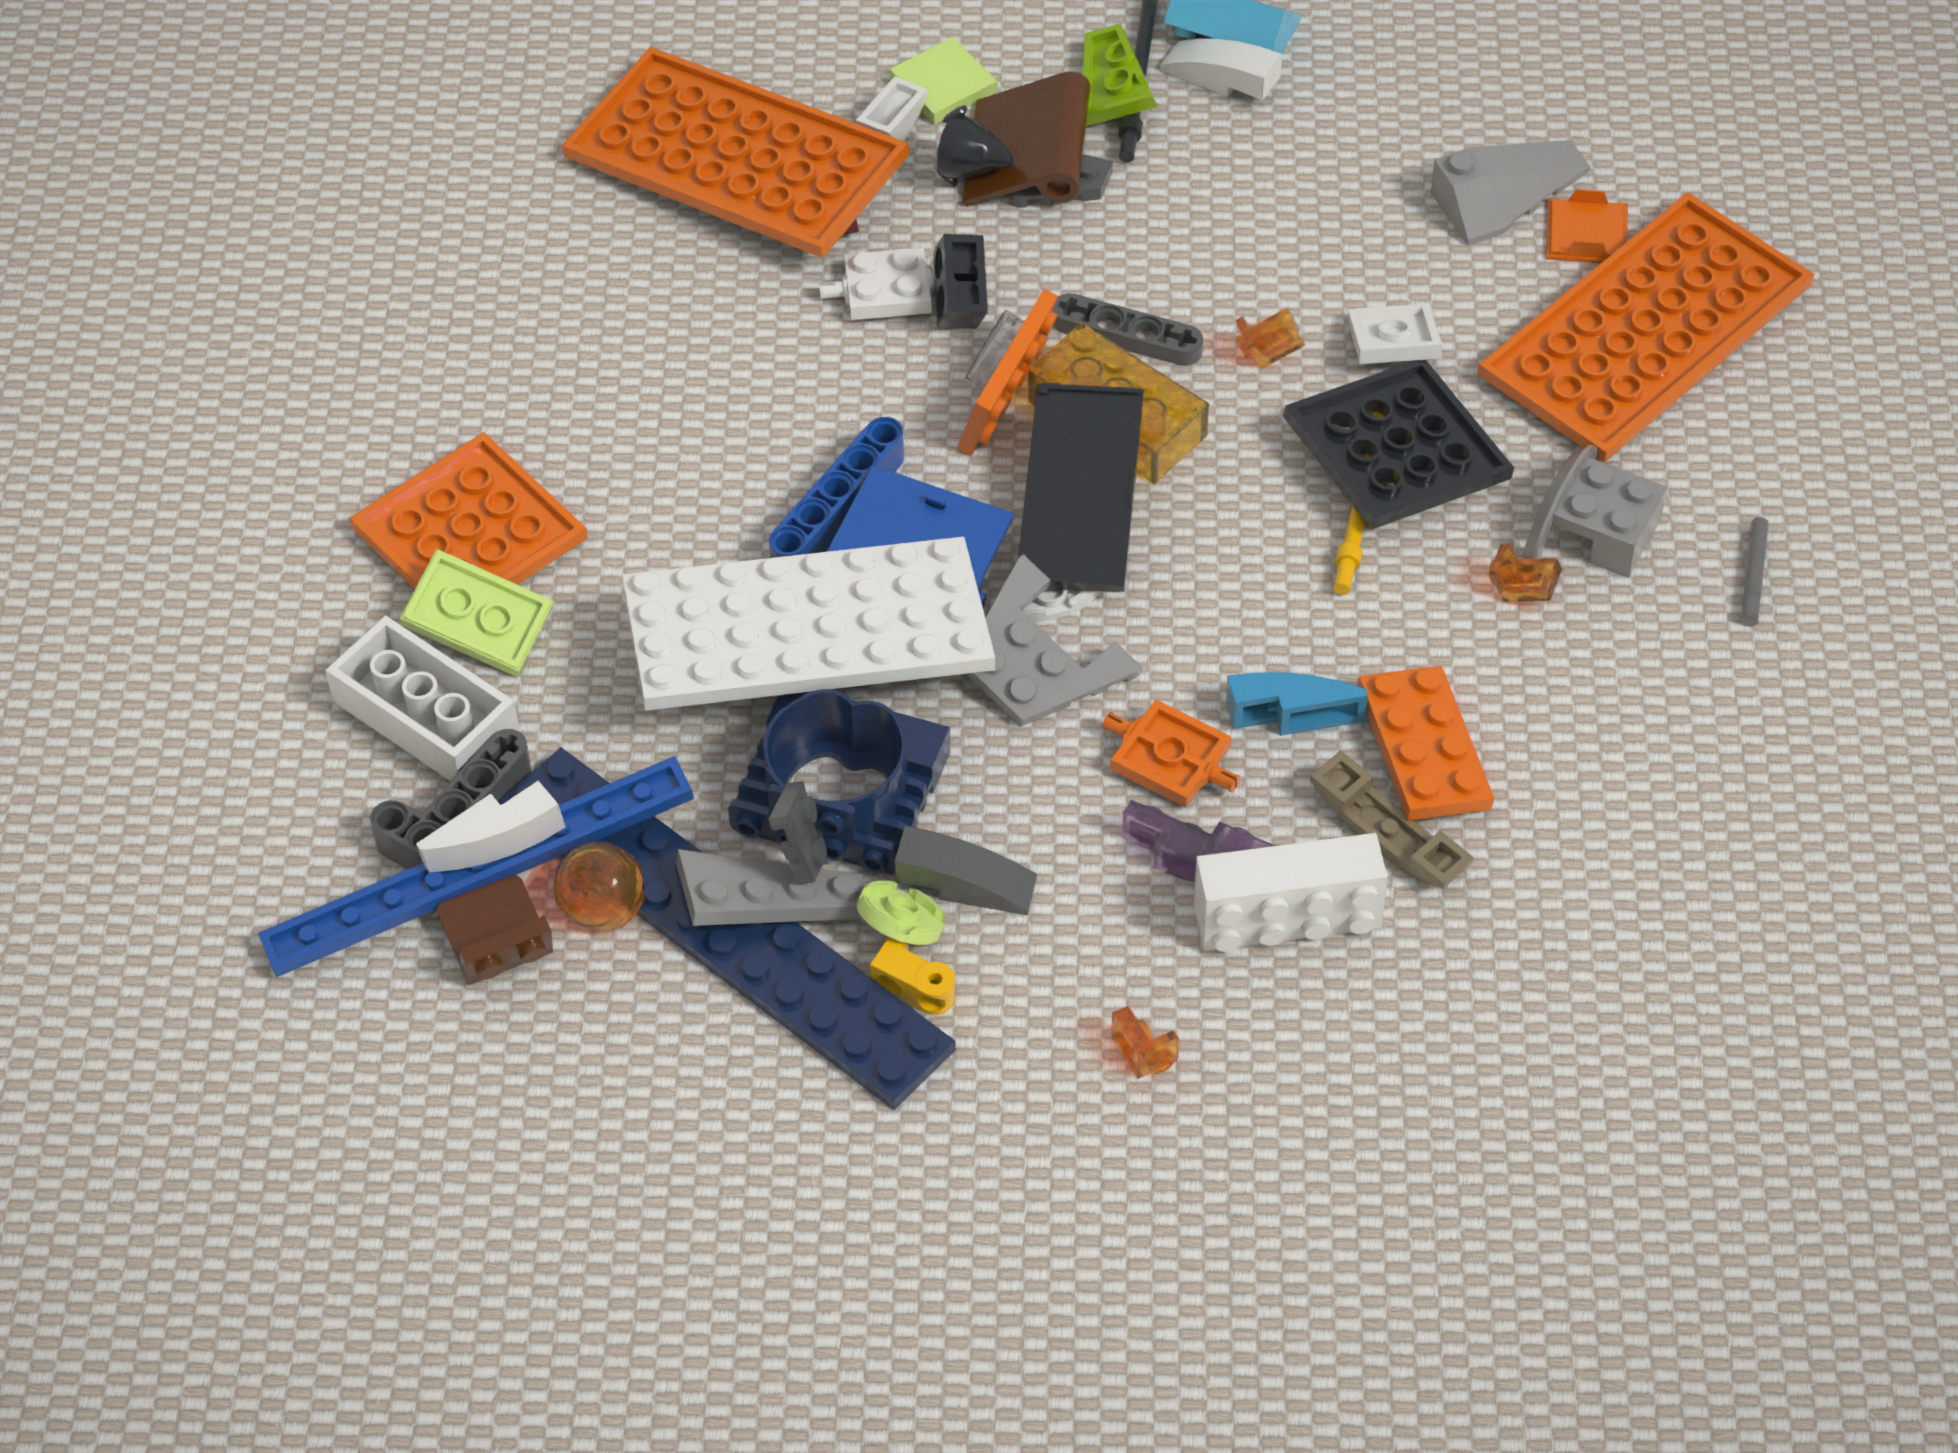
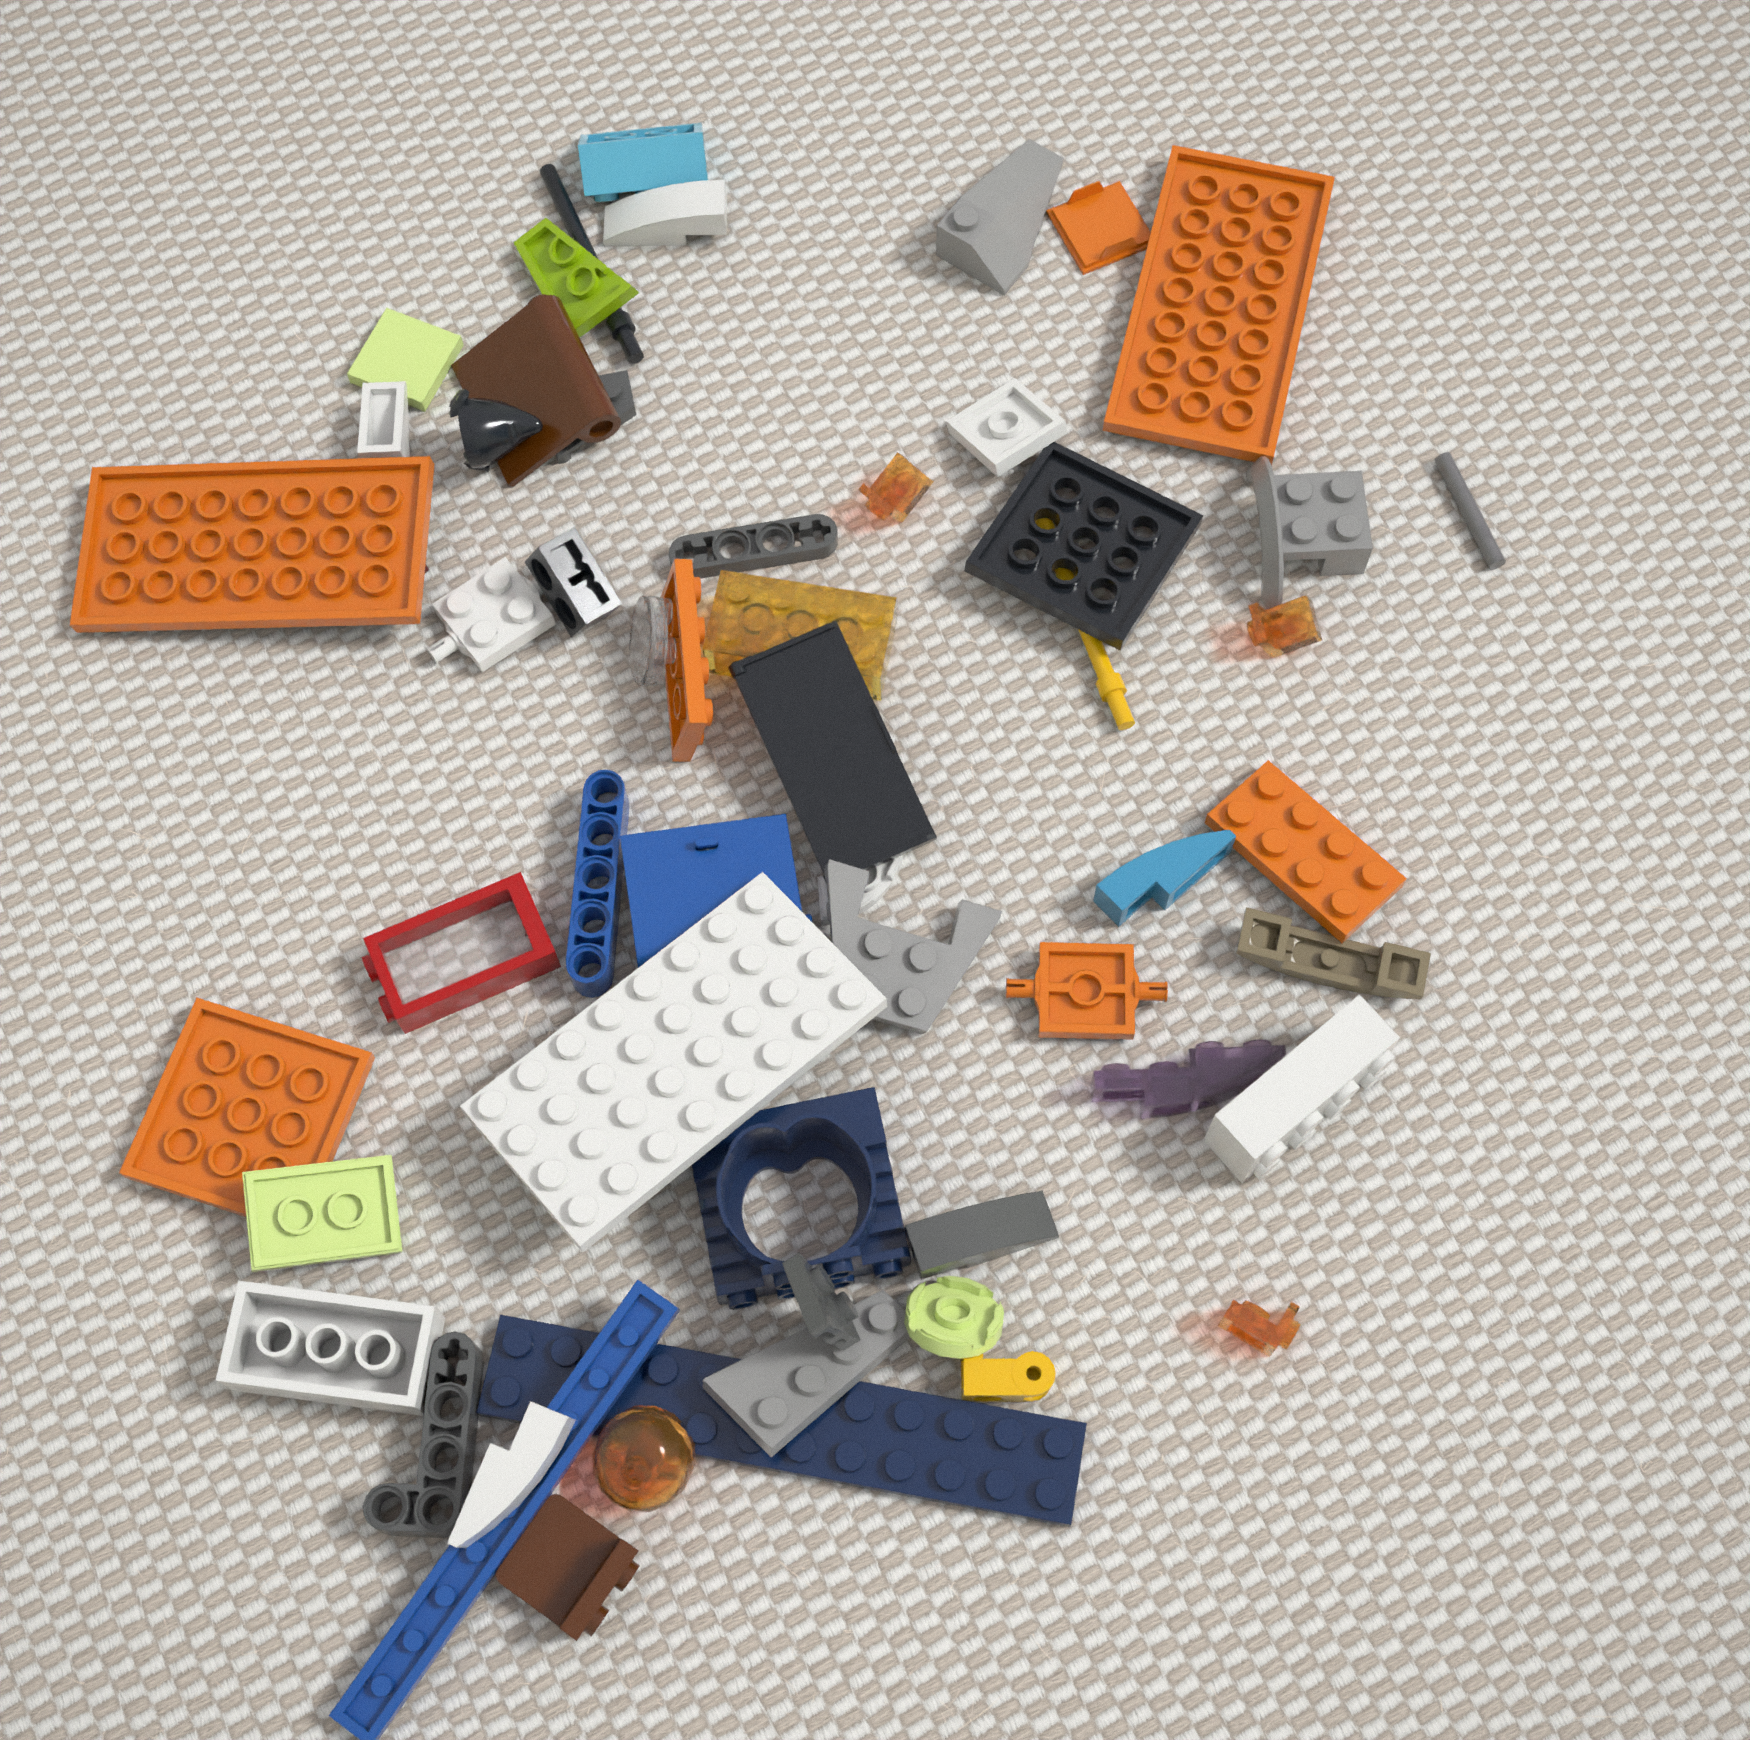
camera: 30 degrees left, 15 degrees up
(699, 496) = (459, 954): none -> window

